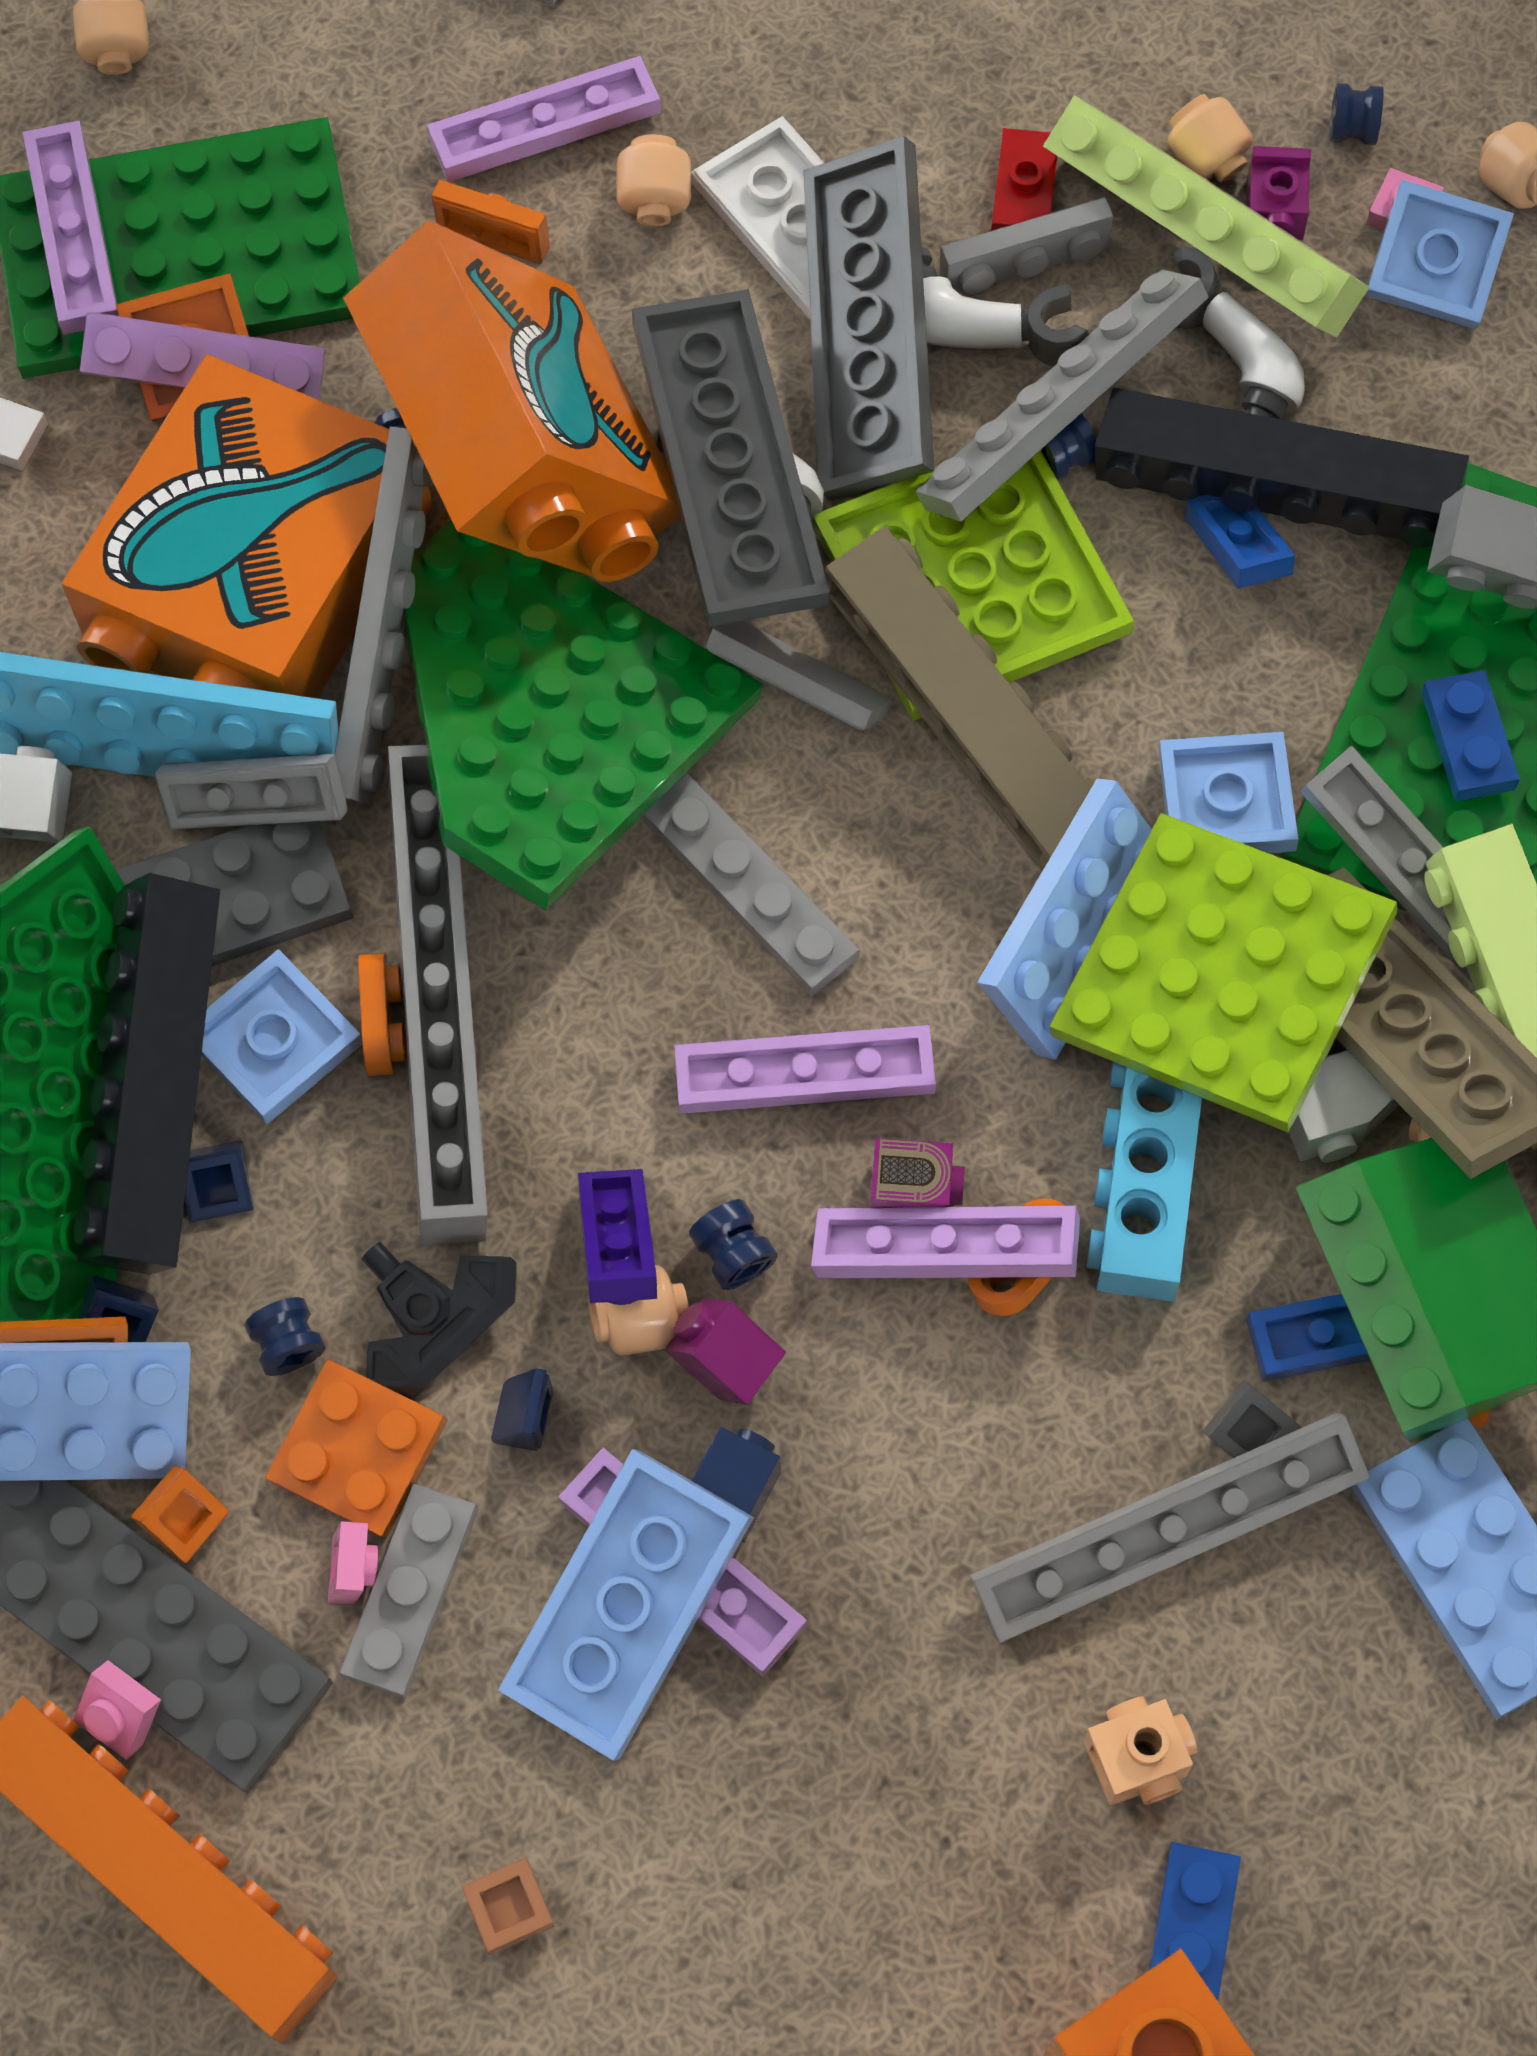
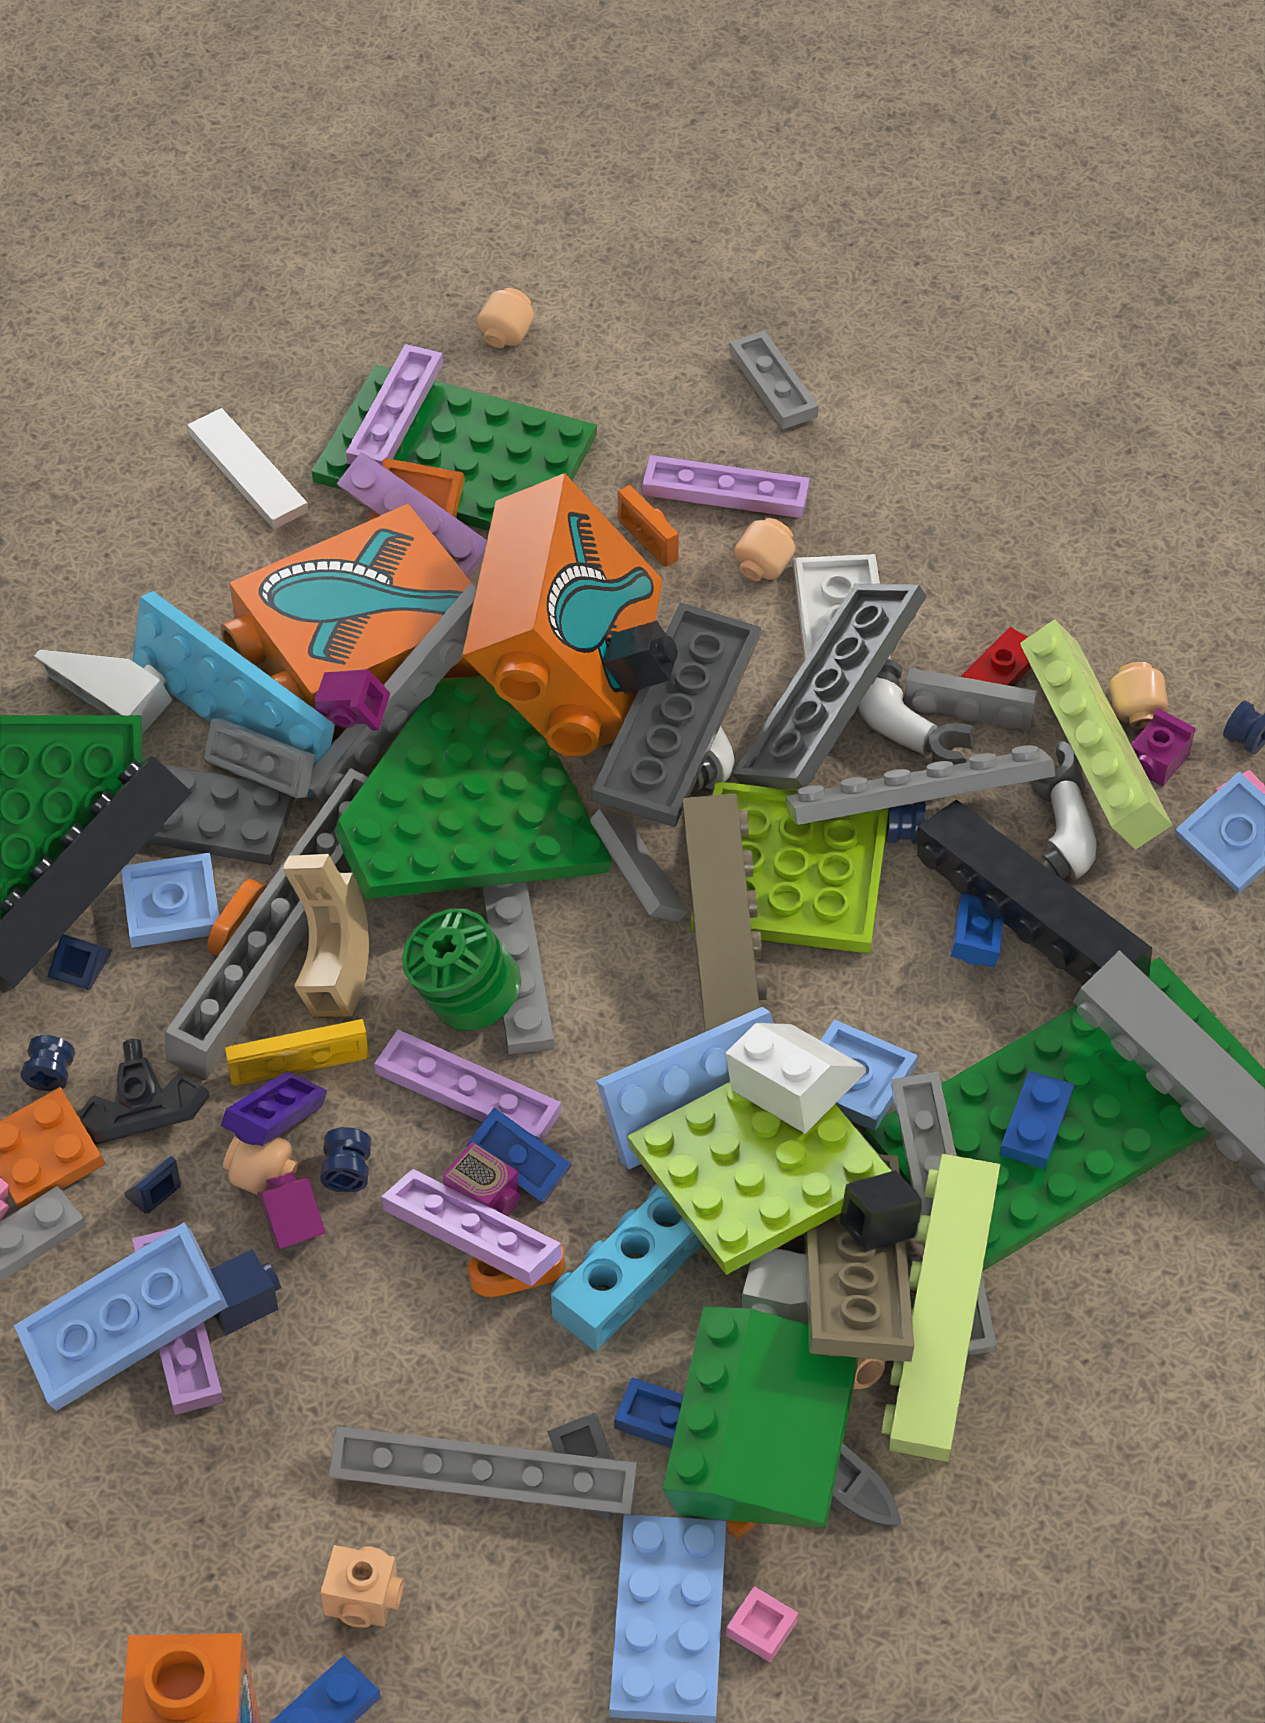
camera: 30 degrees right, 15 degrees down
(337, 657) = (352, 698): none -> magenta brick
(526, 976) = (337, 935): none -> tan arch
(575, 1145) = (297, 1052): none -> yellow tile
(652, 408) = (641, 656): none -> black brick
(732, 949) = (461, 969): none -> green wheel
(930, 1115) = (537, 1164): none -> blue plate
(1203, 845) = (790, 1073): none -> white slope
(1410, 954) = (880, 1210): none -> black brick

